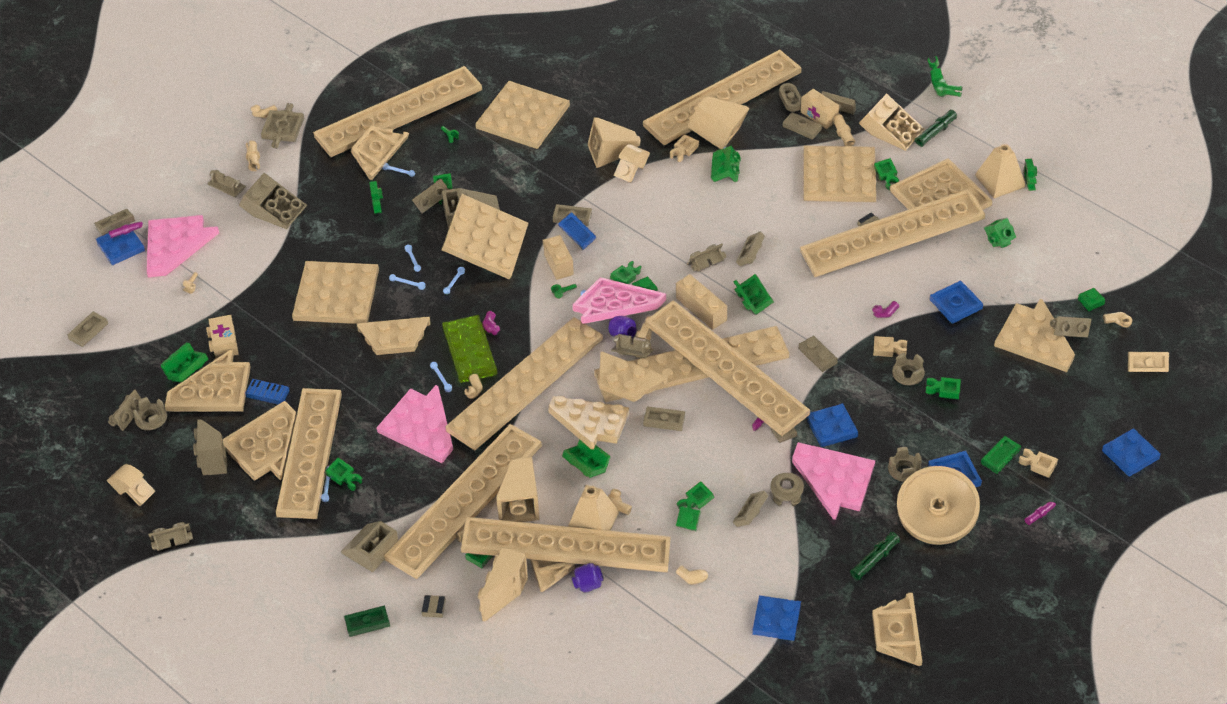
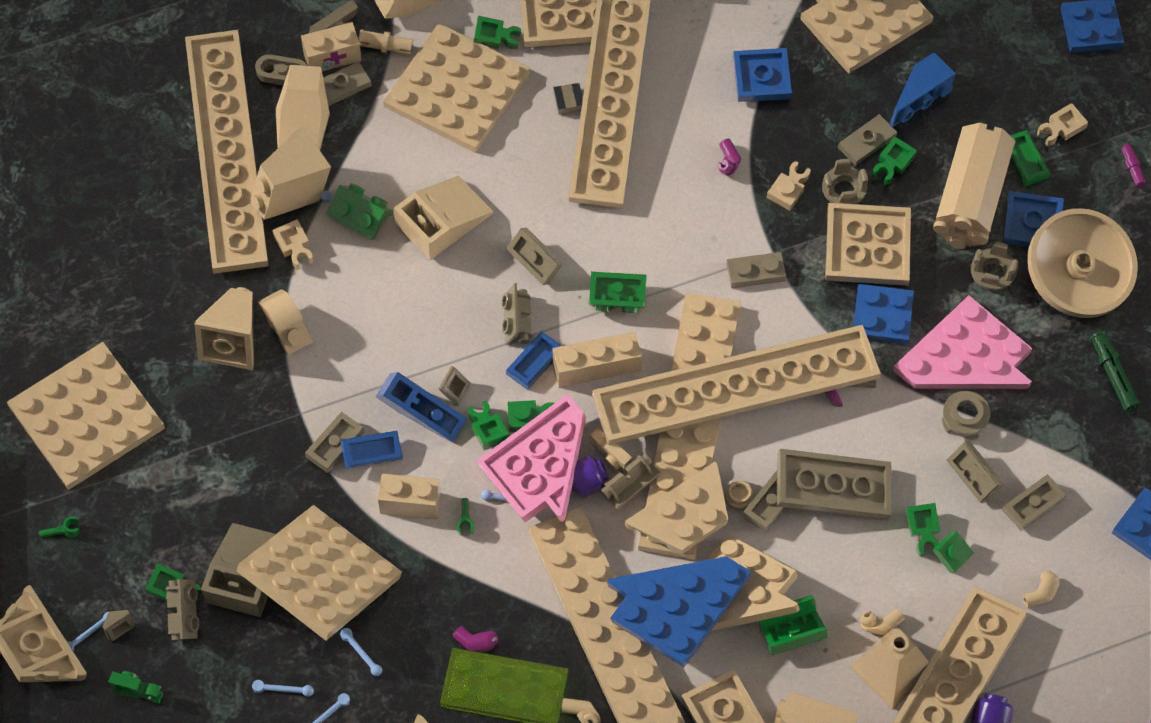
camera: 65 degrees left, 15 degrees up
(407, 176) = (117, 624): none -> dark tan slope
(562, 393) = (677, 604): none -> blue wing
(617, 238) = (420, 406): none -> blue slope
(641, 249) = (454, 385): none -> dark tan slope
(659, 401) = (739, 494): none -> tan plate
(675, 275) = (533, 361): none -> blue tile
(692, 440) = (834, 484): none -> dark tan plate
(746, 197) = (440, 215): none -> tan slope
(750, 547) = (1034, 502): none -> dark tan plate
(769, 115) = (302, 104): none -> tan piece
(874, 397) = (868, 244): none -> tan plate
(950, 369) = (867, 140): none -> dark tan plate
(951, 427) = (974, 185): none -> tan brick
(1004, 377) = (926, 83): none -> blue slope

